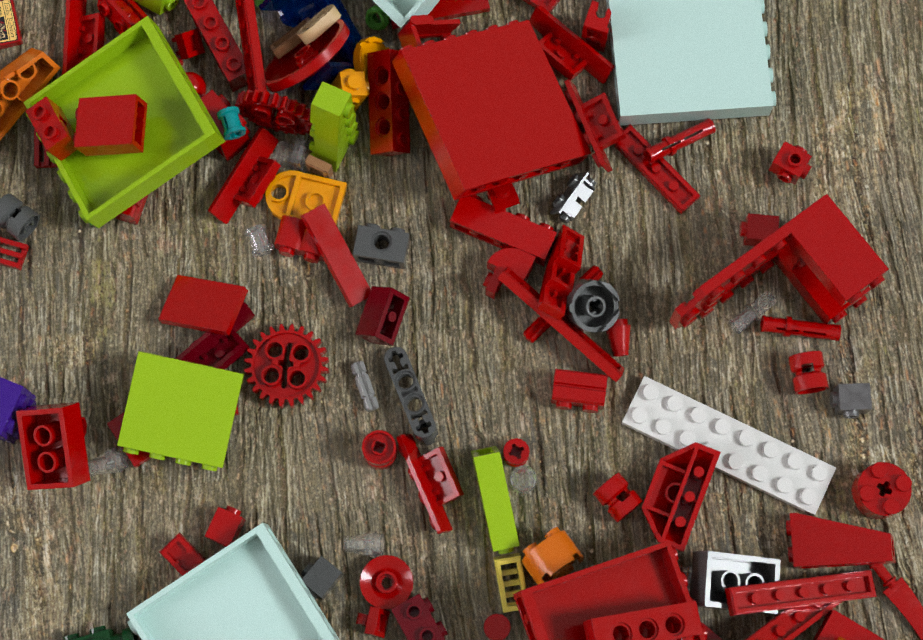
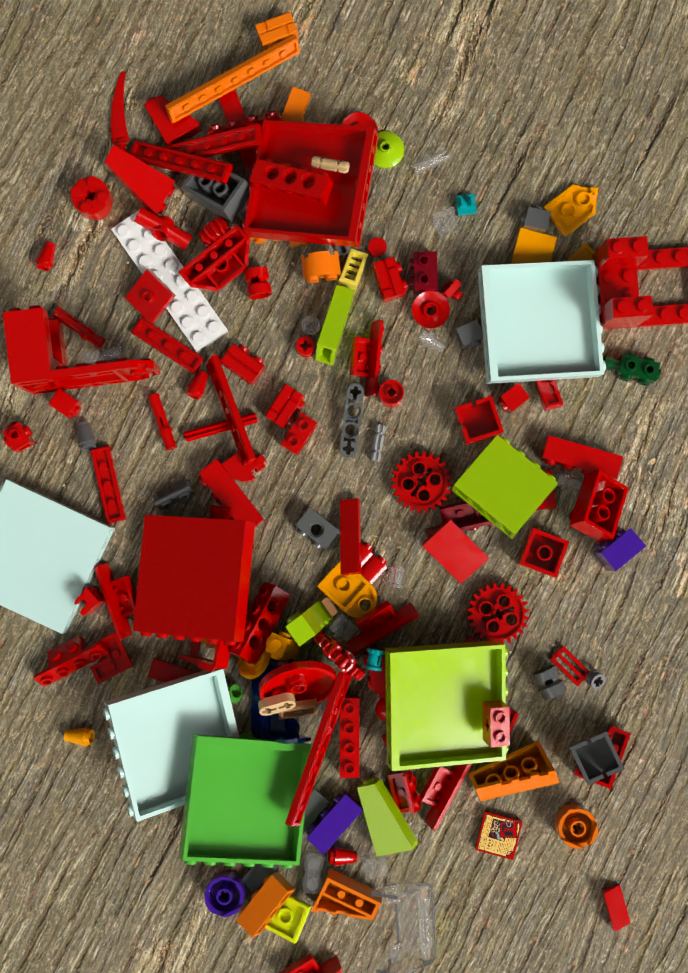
camera: 150 degrees left, 10 degrees up
(95, 358) = (543, 552): none -> red brick
(105, 499) = (579, 457): none -> red brick
(110, 125) = (457, 701): red brick -> none
(132, 276) = (492, 596): none -> red gear
(189, 43) = (371, 744): red tile -> none
(254, 474) = (479, 421): none -> red piece
(382, 315) = (343, 481): dark red brick -> none
(459, 592) = (389, 279): none -> red brick
(464, 342) = (299, 434): none -> red brick
(500, 366) = (285, 406): none -> red brick
(560, 272) = (209, 446): red slope -> none
(599, 121) = (126, 535): red bracket -> none
(602, 299) = (204, 412): dark grey brick -> none
(635, 271) = (162, 422): none -> red pin
(655, 152) = (89, 492): red pin -> none
(683, 365) = (167, 345): none -> red tile
(706, 529) = (213, 231): none -> red gear
(714, 207) = (86, 438): none -> dark grey cone
(738, 409) = (150, 296): none -> red plate
(772, 499) = (163, 228): none -> red piece
(811, 381) = (95, 289): red wheel -> none
(851, 399) = (75, 264): flat silver brick -> none
(892, 390) = (45, 258): none -> red cone

